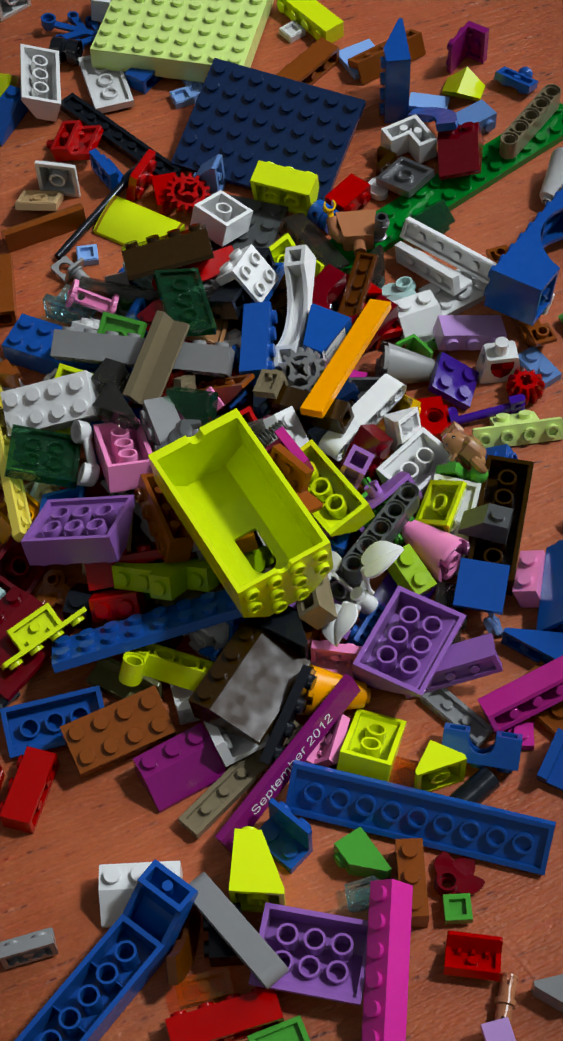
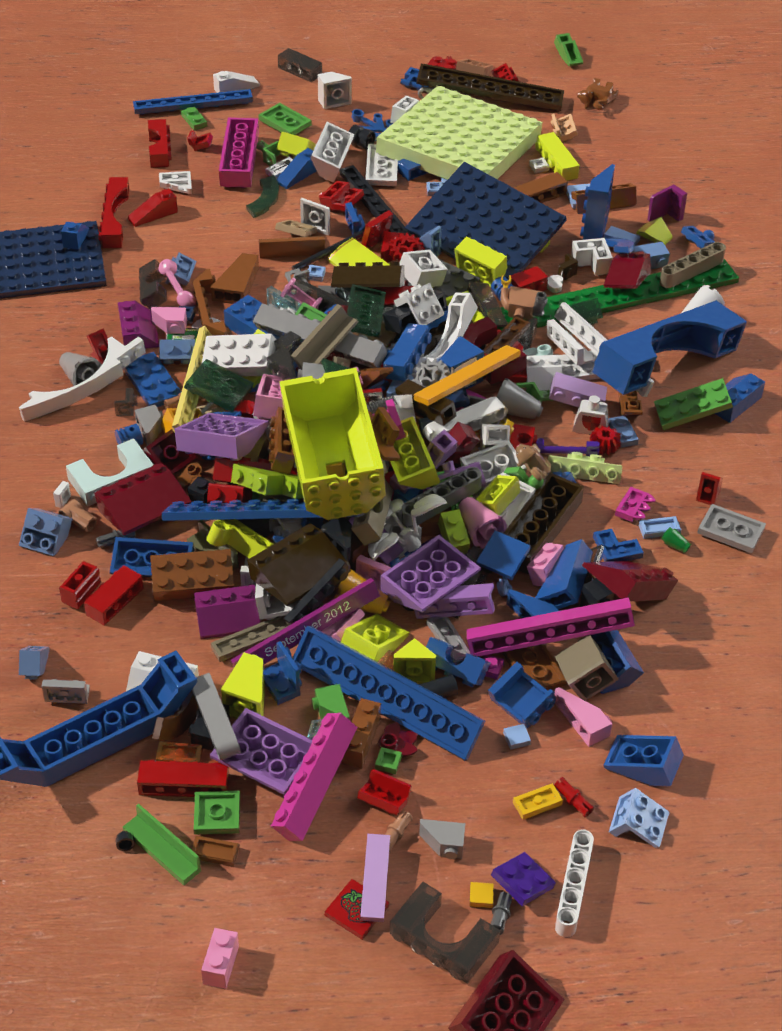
camera: 15 degrees right, 10 degrees down
(35, 630) = (162, 492): neon yellow bracket -> none
(89, 472) = (247, 402): white piece -> none
(269, 383) = (401, 376): dark tan bracket -> none
(405, 177) = (577, 278): flat silver plate -> none
(453, 381) = (550, 421): dark purple plate -> none
(487, 522) = (527, 514): dark grey slope -> none

